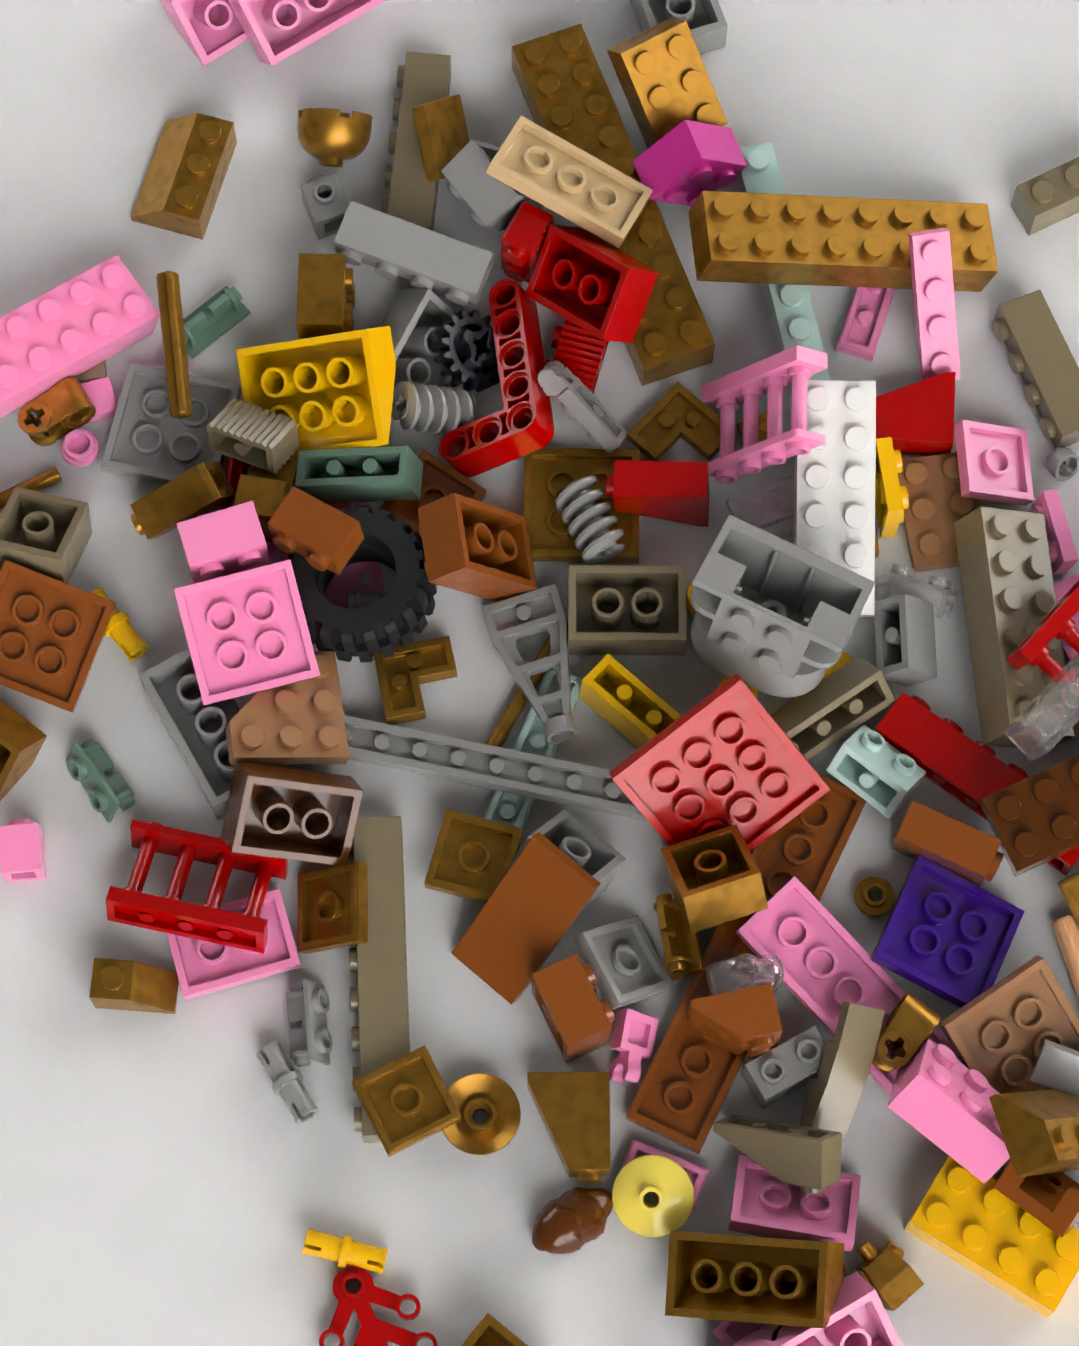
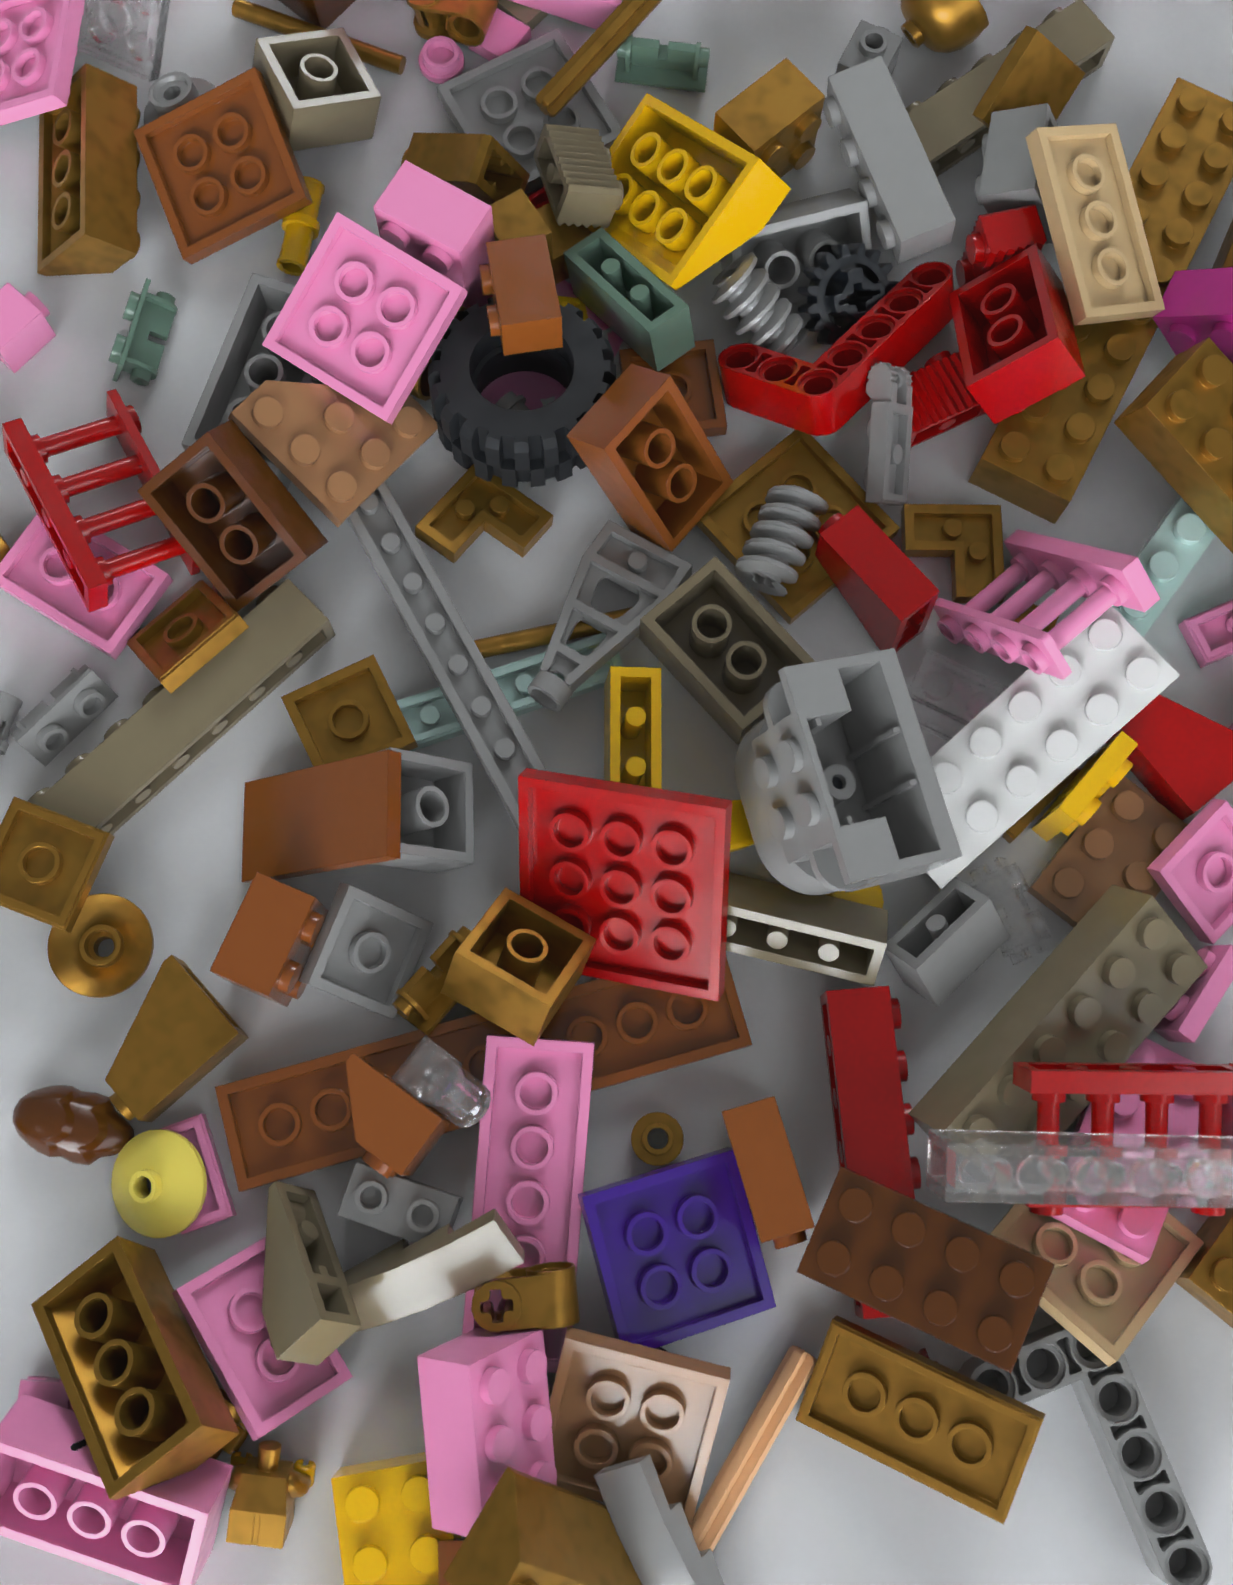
camera: 45 degrees right, 5 degrees up
(635, 1039) = (300, 1026): bright pink plate -> none
(876, 770) = (784, 1029): light aqua brick -> none

